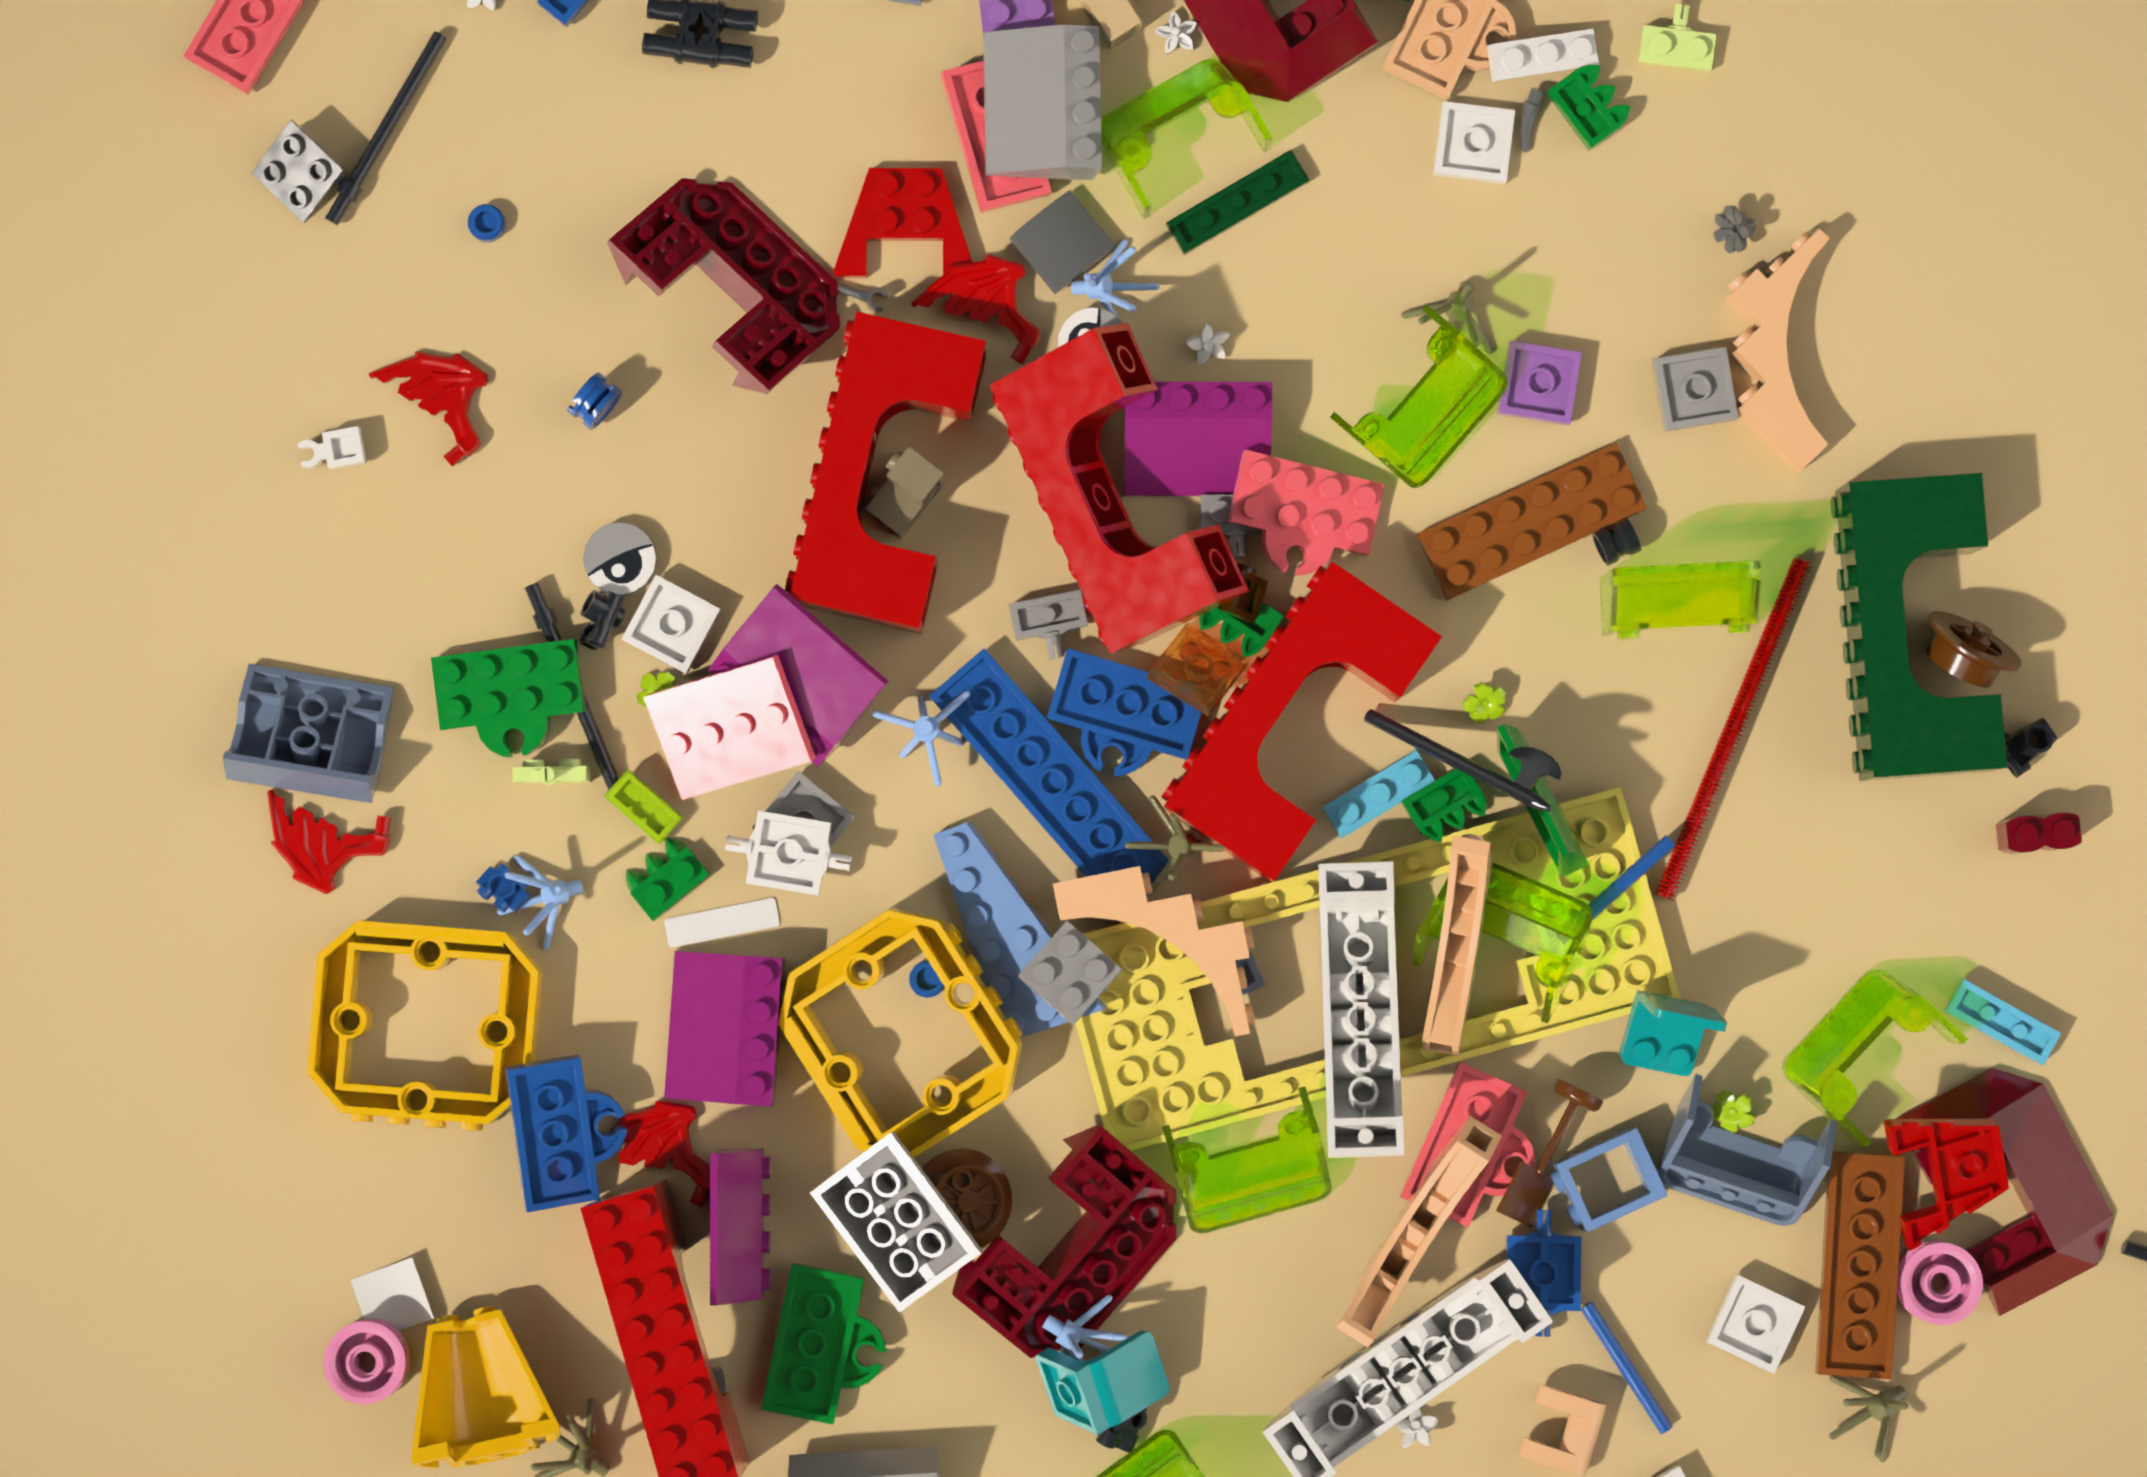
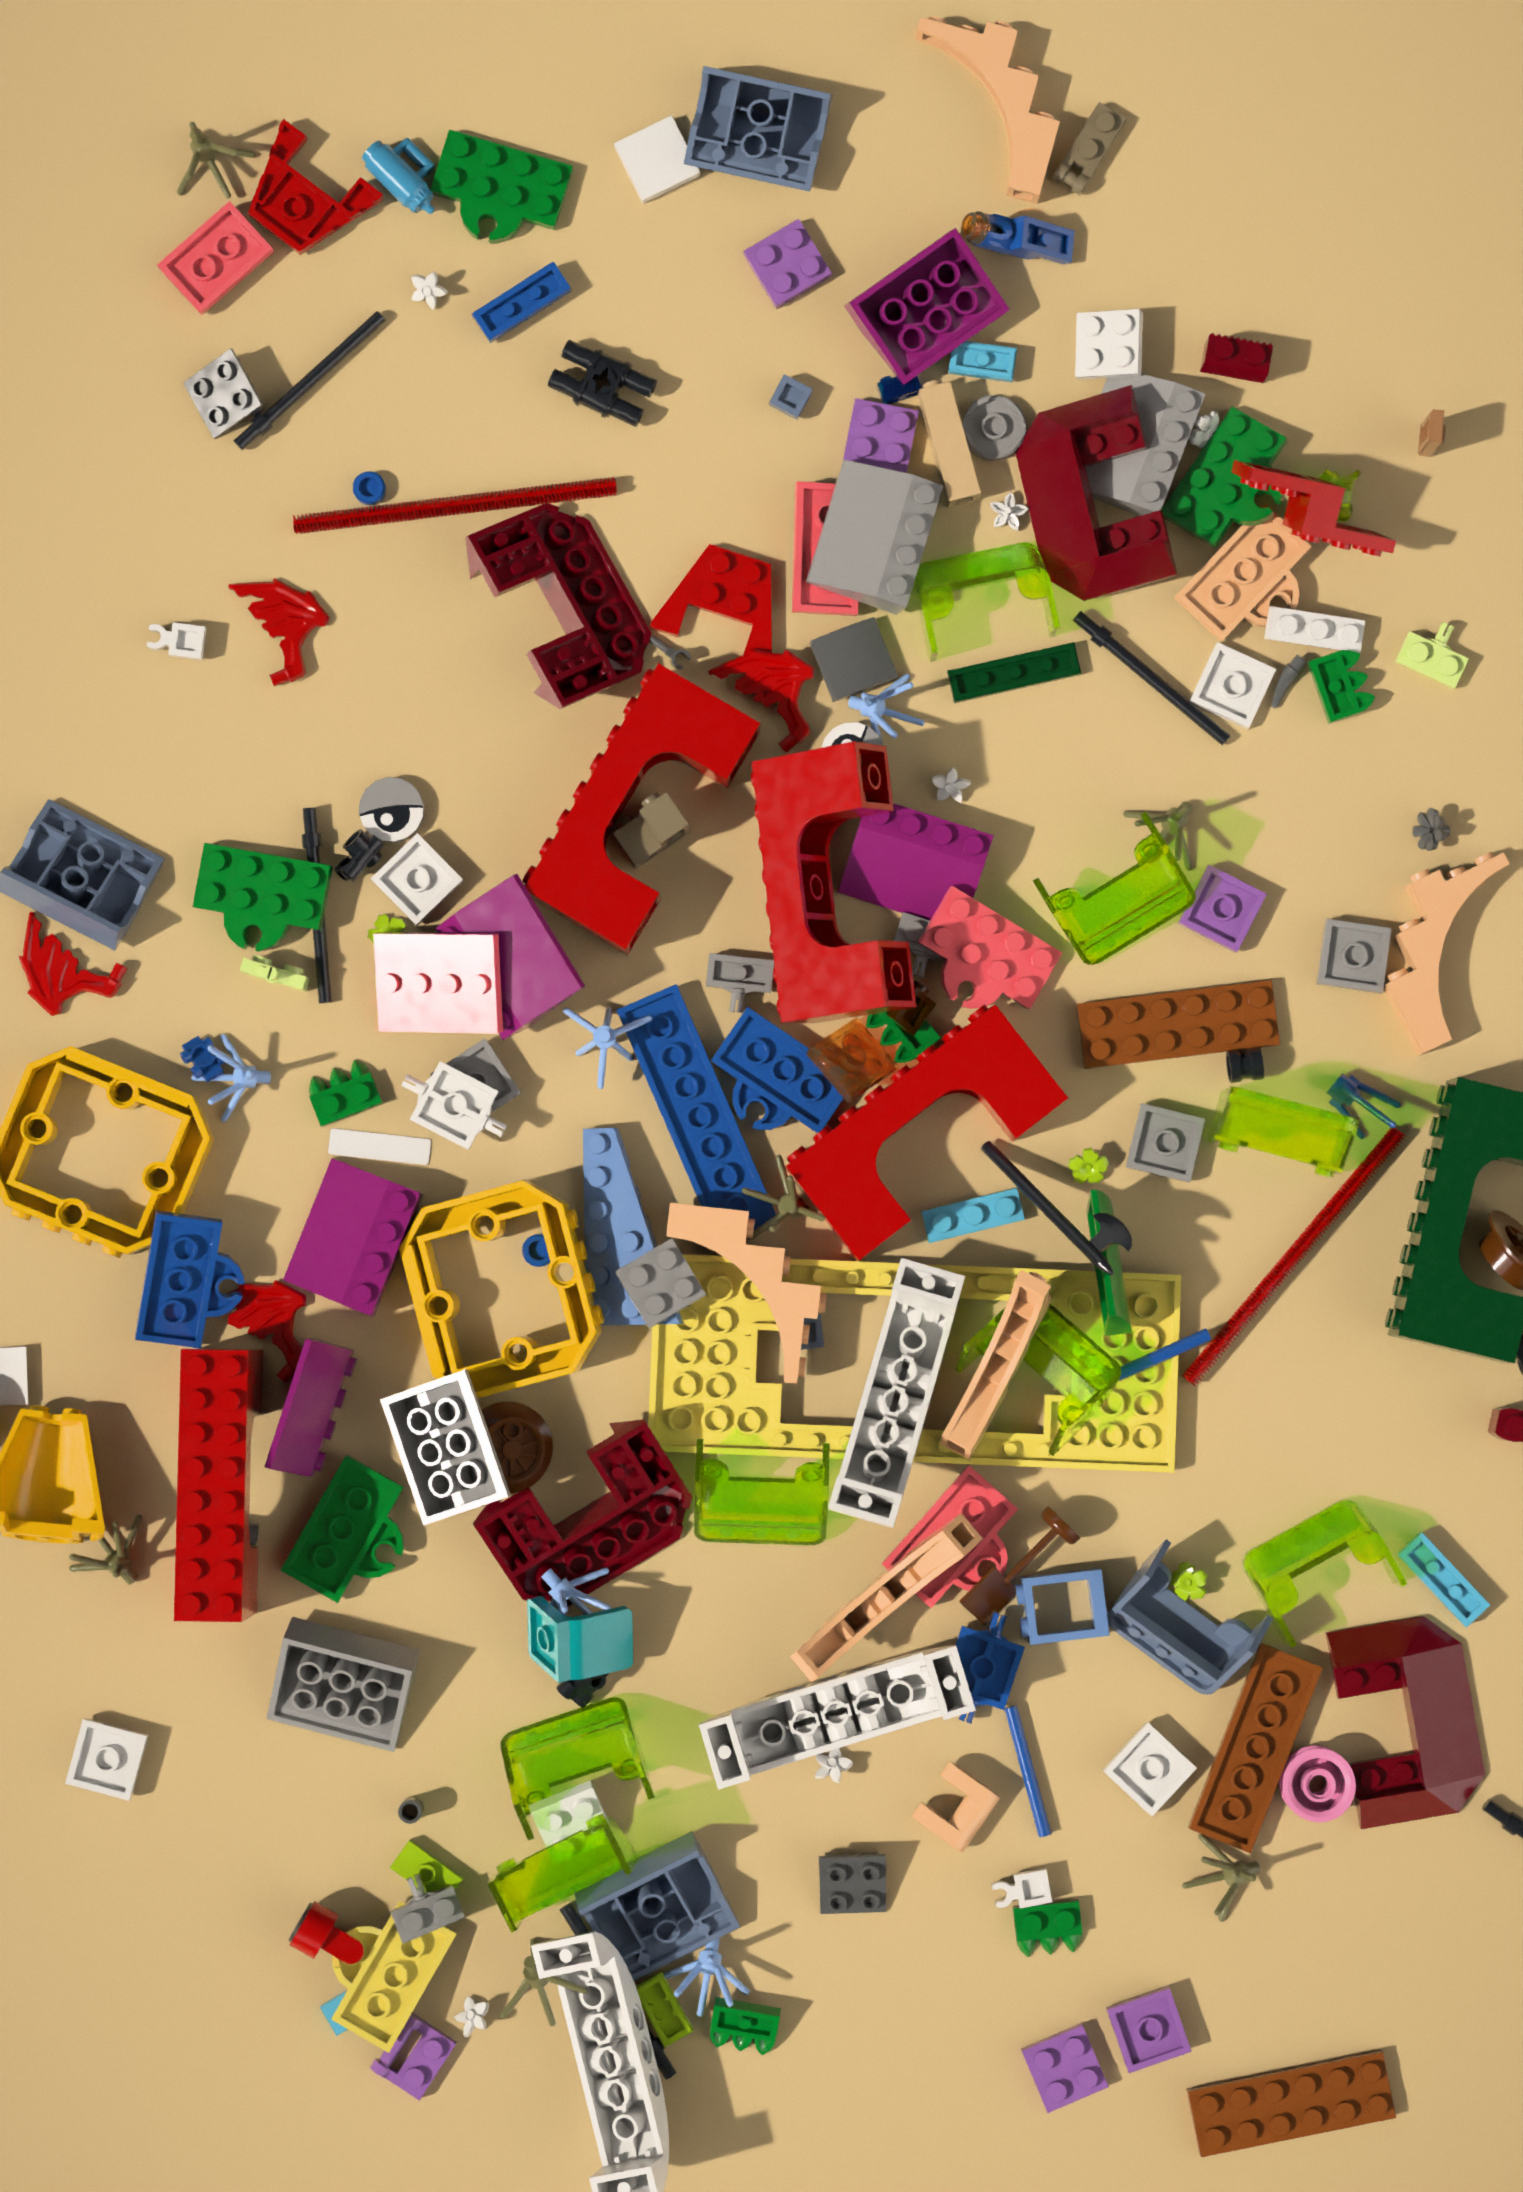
camera: 15 degrees right, 0 degrees up
(583, 213) = (457, 505): none -> red axle
(595, 401) = (412, 669): blue wheel -> none
(643, 806) = (344, 1026): lime plate -> none
(1319, 134) = (1102, 637): none -> black bar
(1445, 802) = (1027, 1240): green plate -> none
(1558, 651) = (1165, 1143): none -> light grey plate
(1666, 1032) = (1153, 1496): teal piece -> none
(1732, 535) = (1347, 1090): none -> plant
(1964, 1168) = (1369, 1694): red wing -> none

